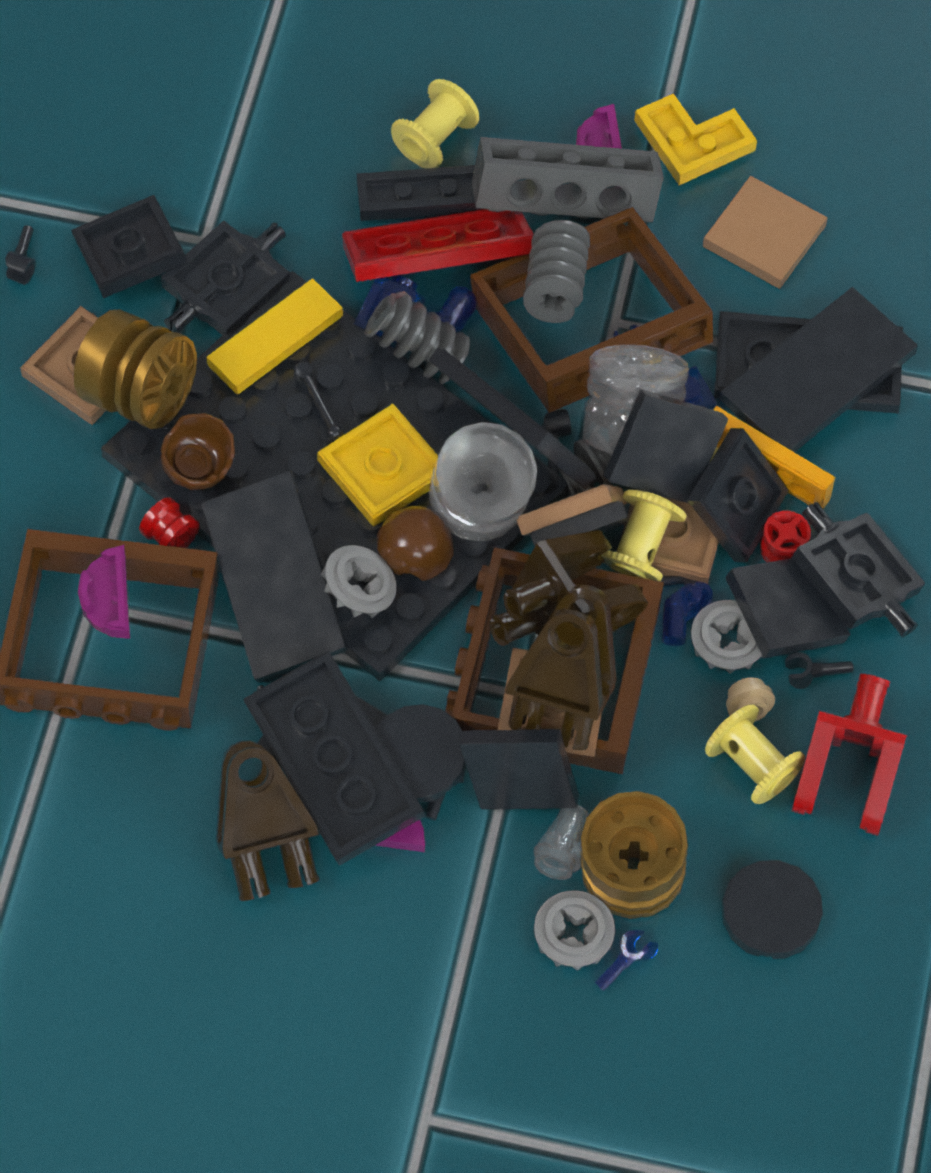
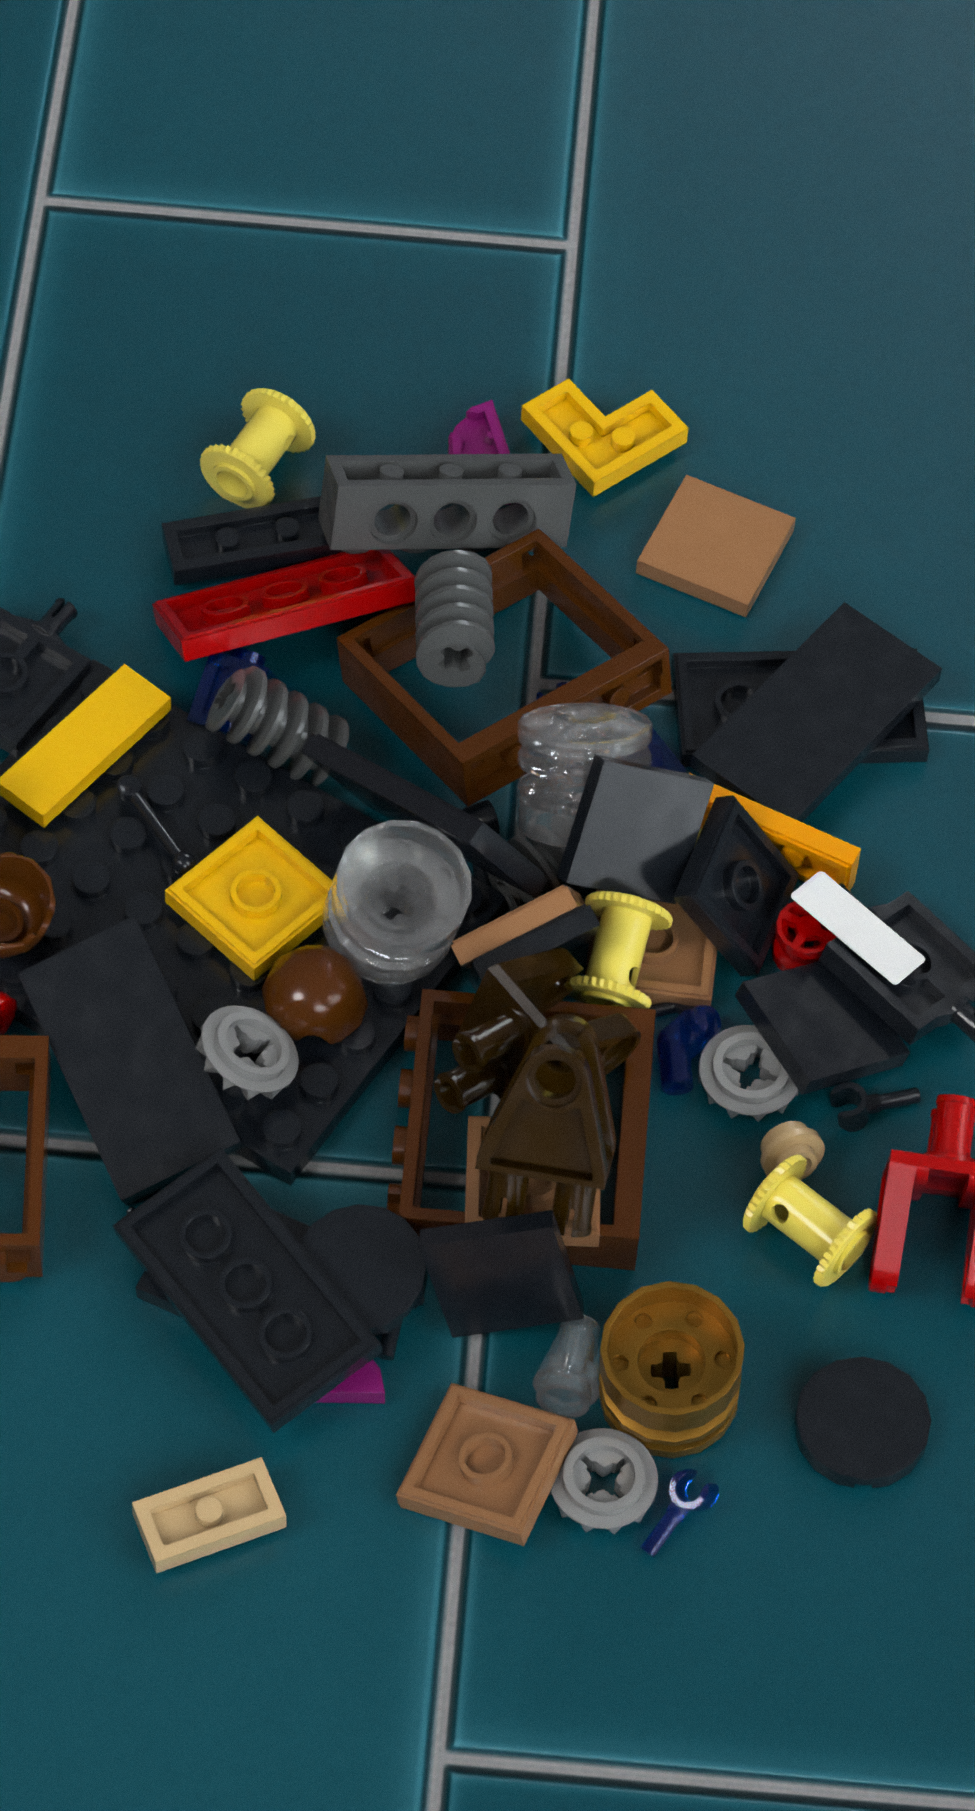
camera: 10 degrees left, 5 degrees down
(261, 816) = (162, 1374): dark brown piece -> none
(284, 920) = (209, 1515): none -> tan plate
(458, 307) = (324, 682): clear blue arm -> none
(491, 907) = (487, 1464): none -> medium nougat tile
(823, 537) = (858, 927): none -> white sticker

